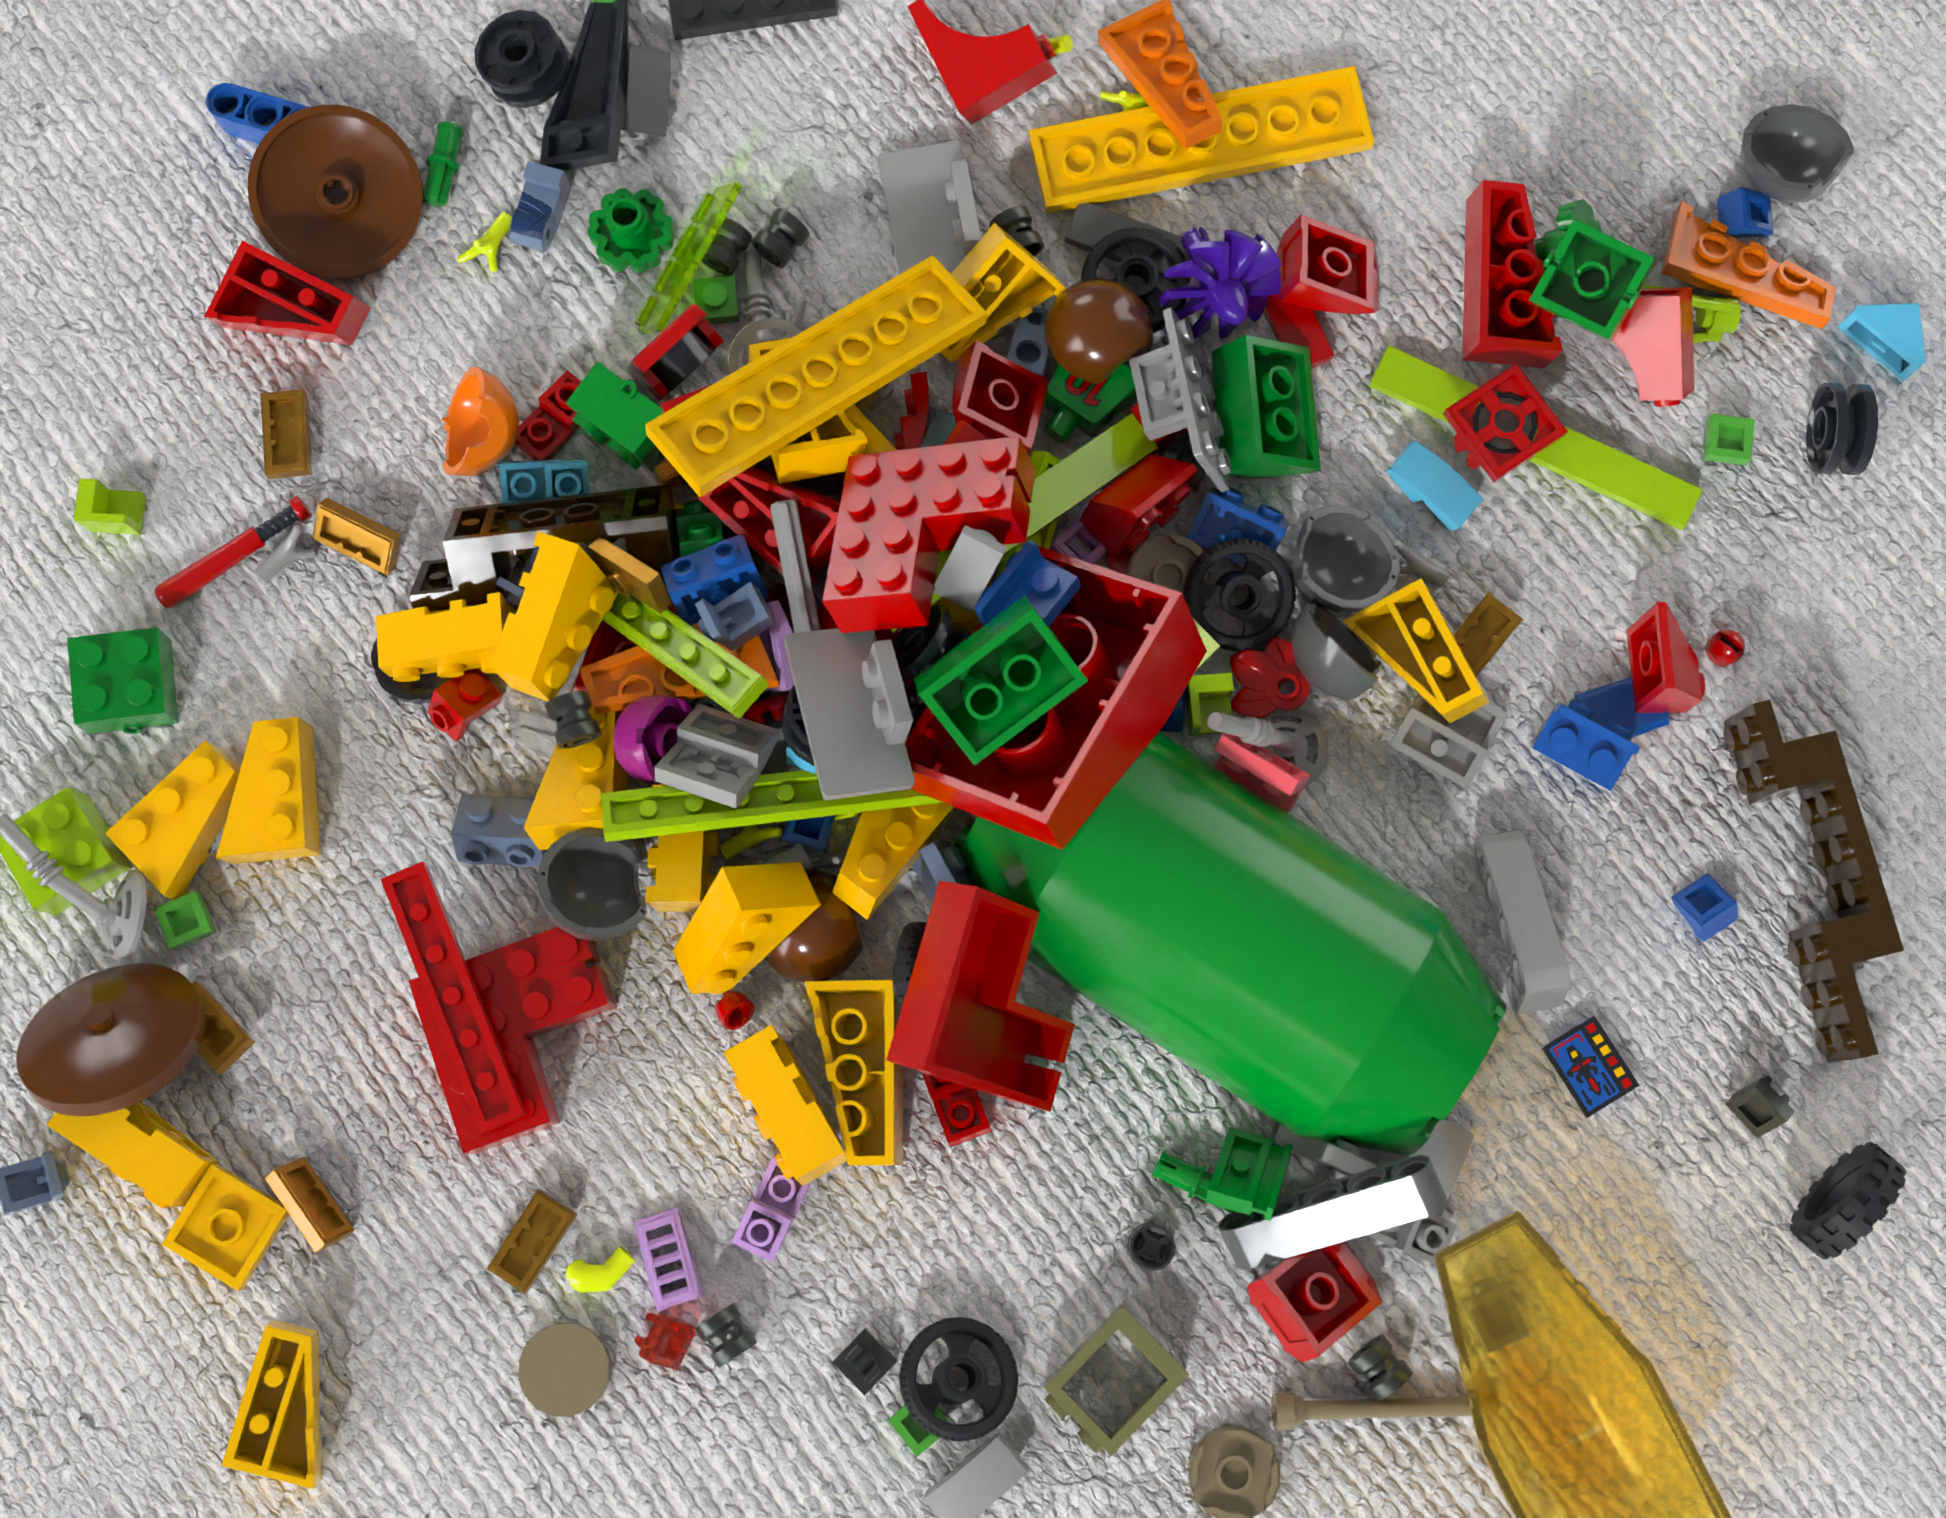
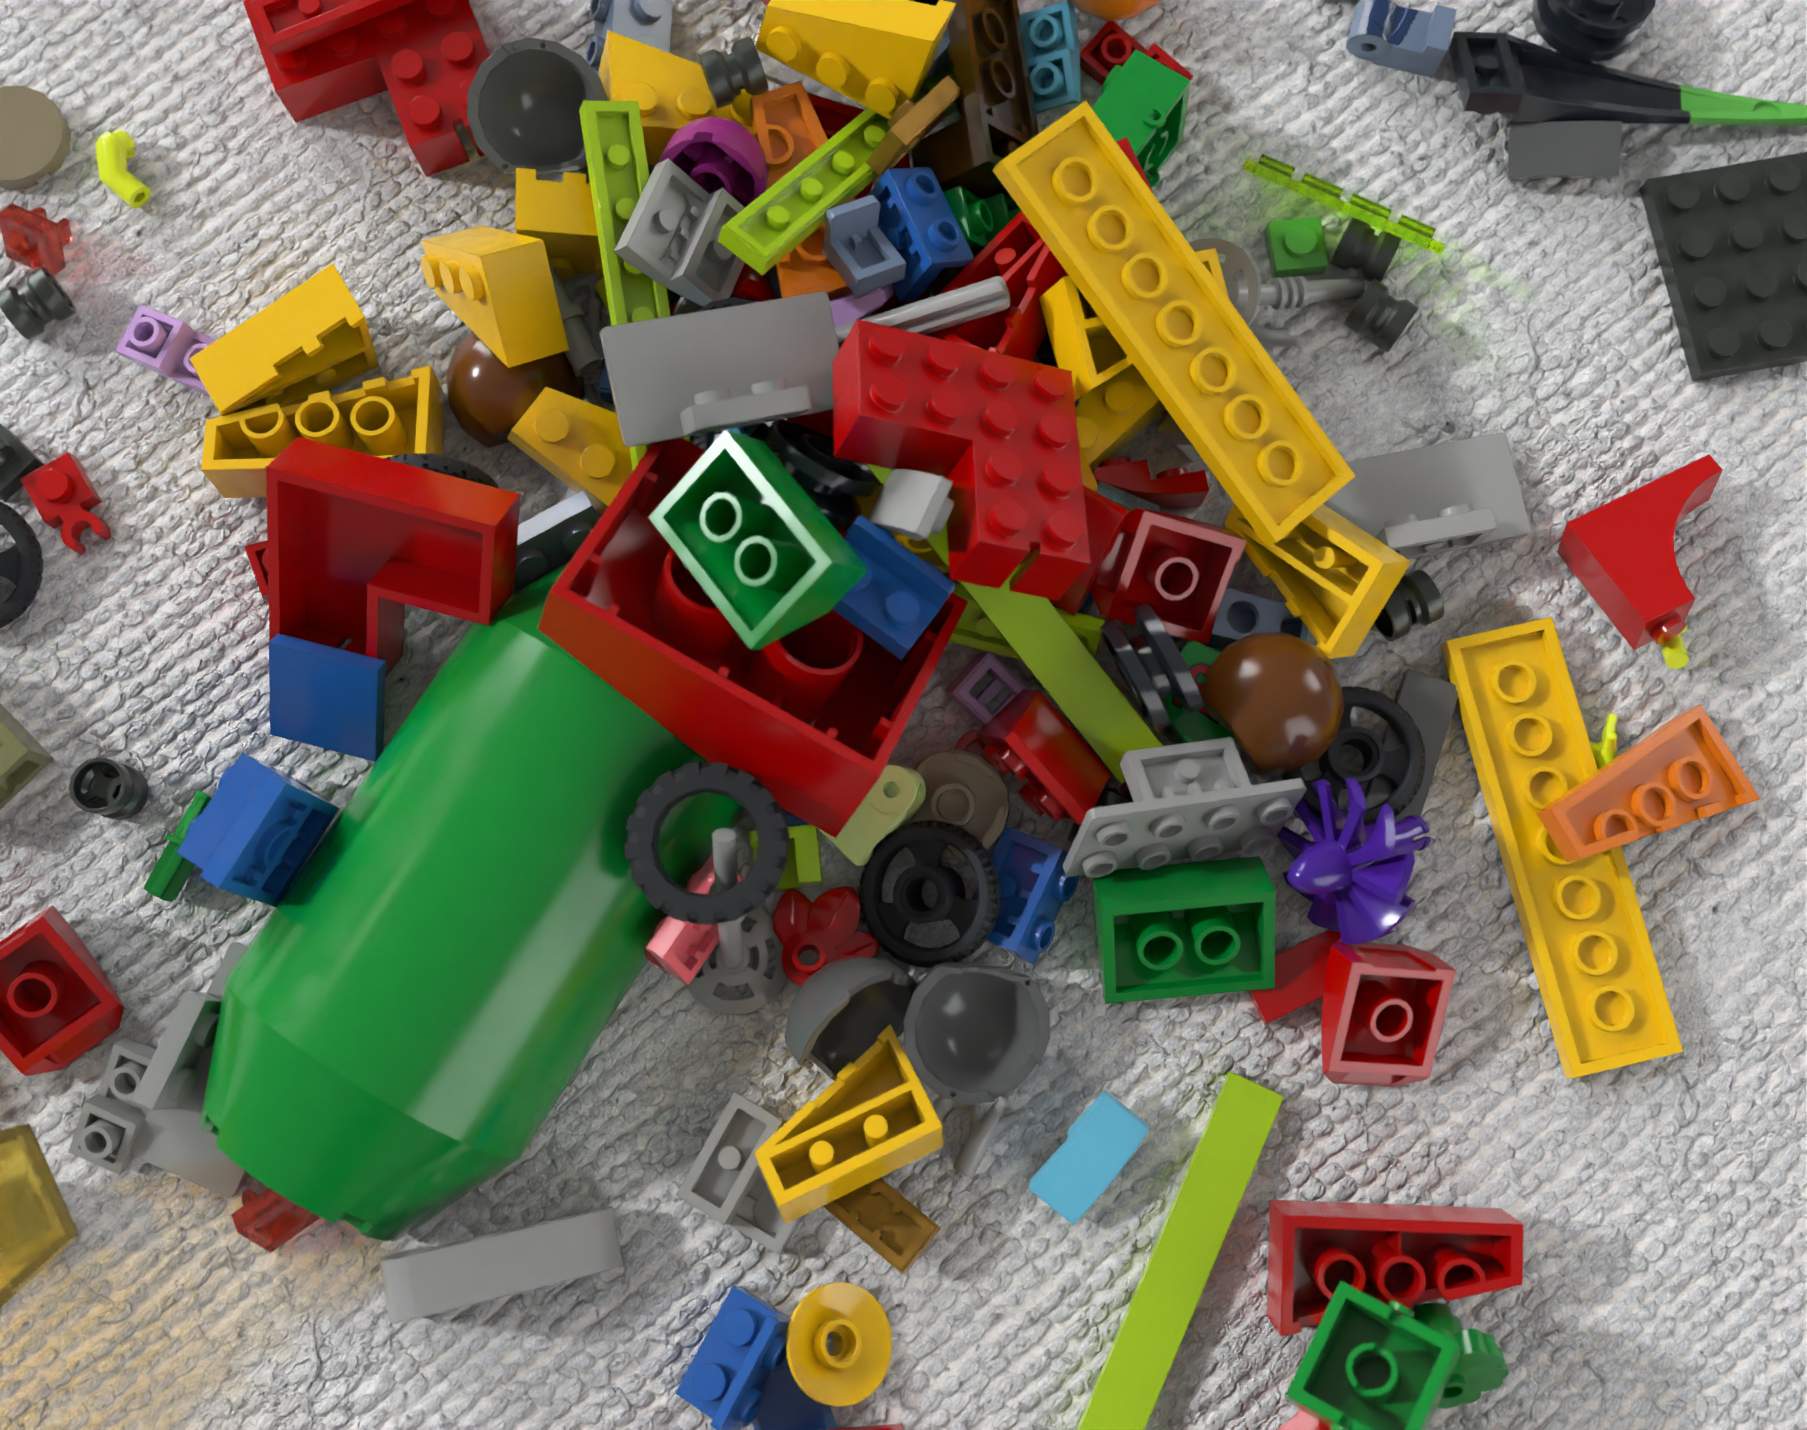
camera: 85 degrees right, 0 degrees up
(532, 1241) = (156, 93): pearl gold plate -> none
(631, 230) = (1379, 142): green plant -> none
(656, 1280) = (102, 229): lavender slope -> none
(675, 353) = (1218, 188): piece -> none
(742, 1008) = (413, 299): red hinge -> none
(896, 1305) = (64, 498): none -> red plate
(1077, 412) = (1152, 666): none -> black wheel
(1080, 1063) = (327, 697): none -> blue tile
(1195, 1104) = (256, 831): none -> blue bracket
(1242, 694) = (644, 834): none -> black tyre
(1249, 1173) = (177, 907): green plate -> none
(1335, 1212) = (119, 1010): beam -> none
(1488, 1097) = (270, 1219): none -> clear red tile
(1504, 424) = (1171, 1250): red piece -> none
(1573, 668) = (859, 1350): none -> yellow dish
(1590, 1066) = (313, 1355): piece -> none

